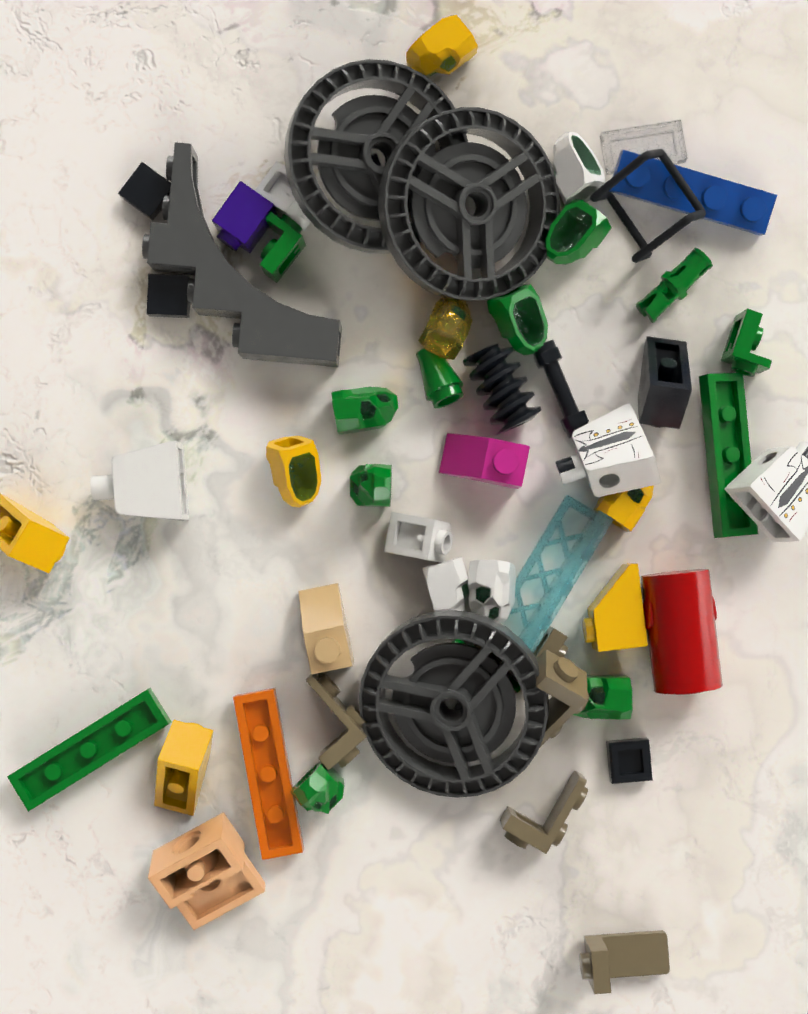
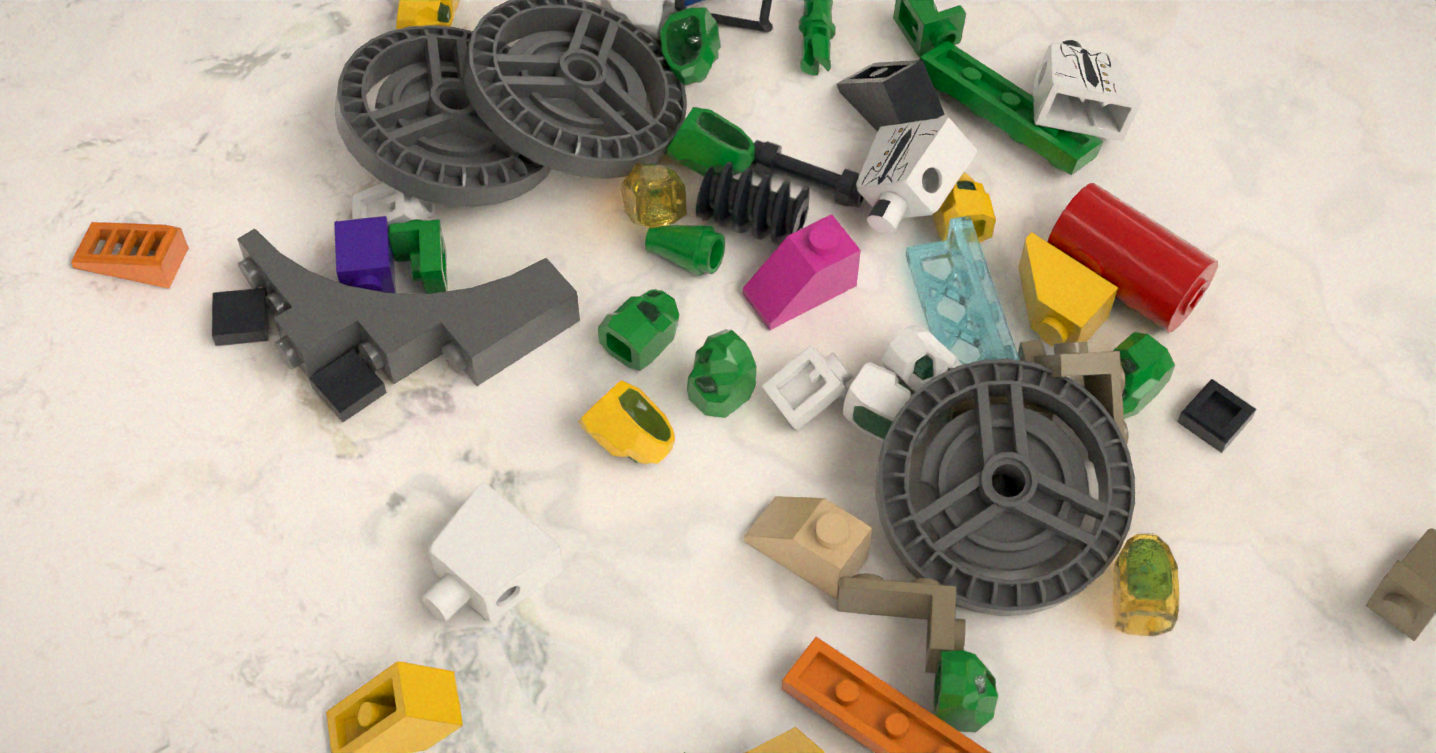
camera: 45 degrees left, 30 degrees down
(133, 111) = (154, 270): none -> orange slope
(474, 823) = (1145, 587): none -> rock
(526, 831) = (1213, 544): dark tan bracket -> none

